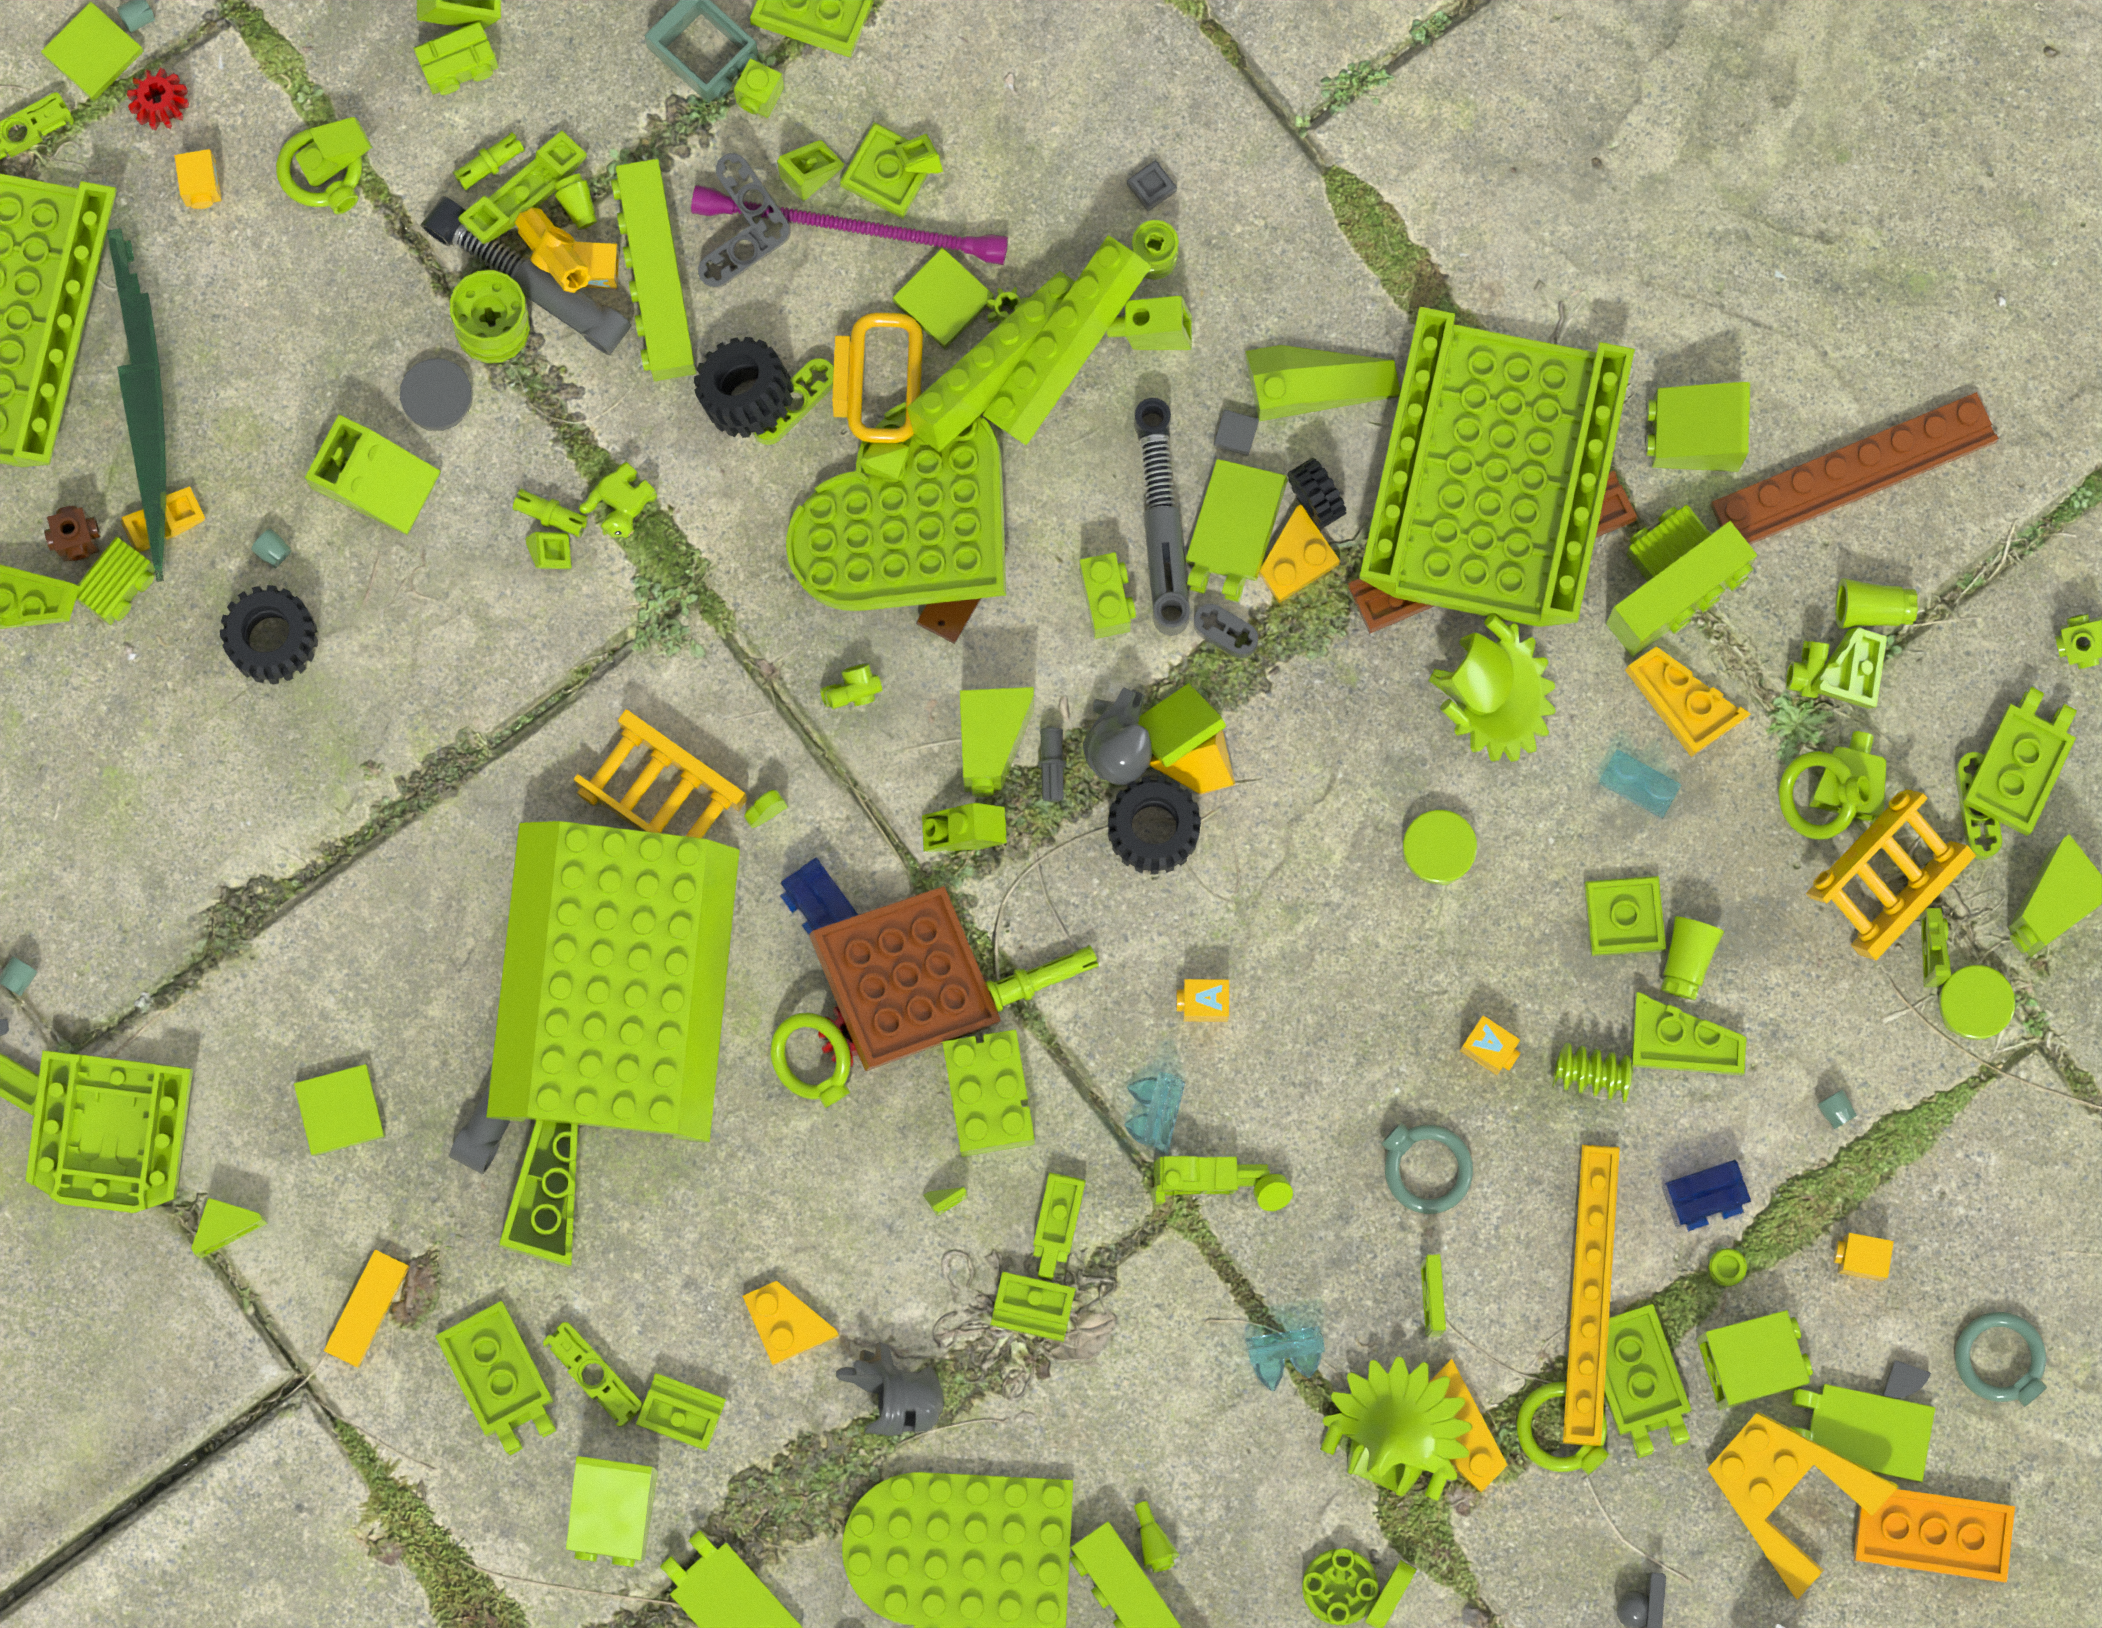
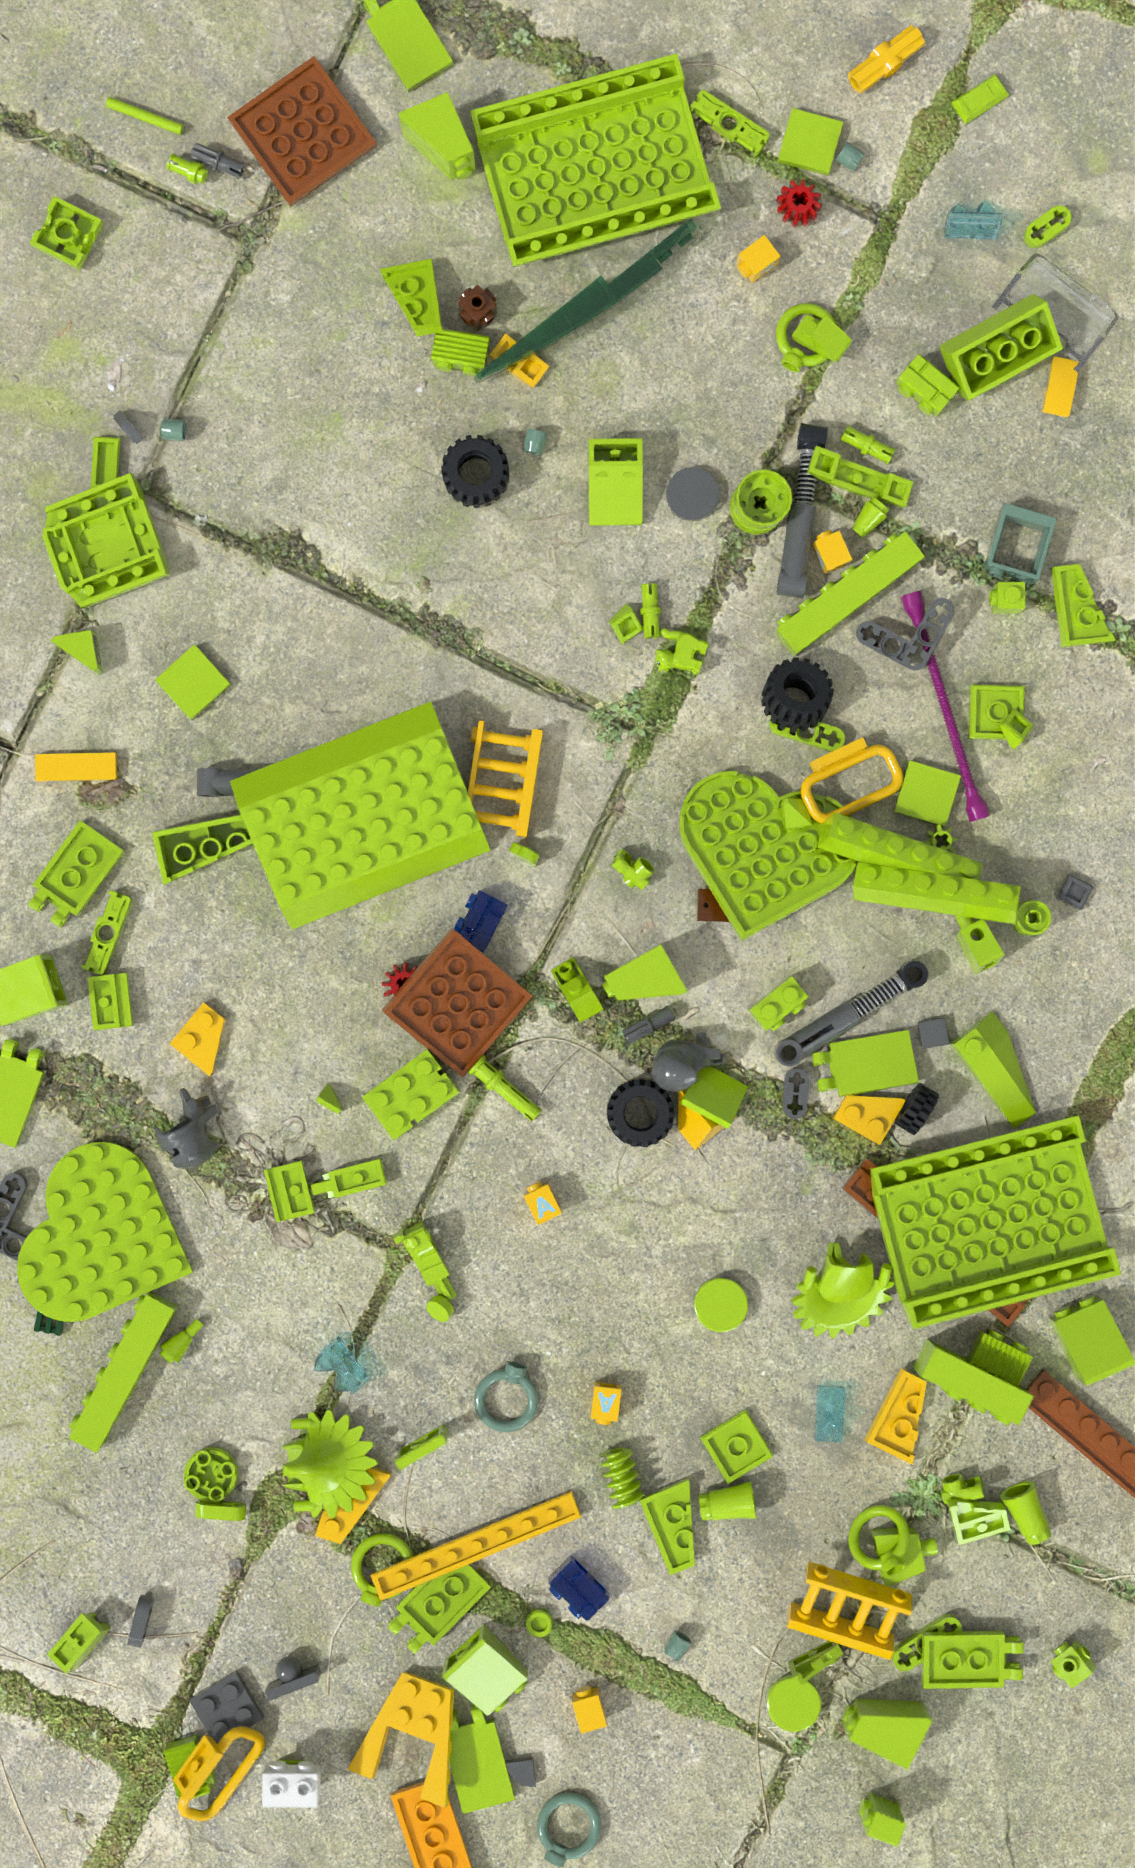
camera: 60 degrees right, 10 degrees up
(552, 250) = (826, 520): yellow piece -> none
(808, 168) = (971, 659): lime slope -> none
(831, 1089) = (363, 992): lime piece -> none
(1163, 1098) = (466, 1206): clear light blue tile -> none

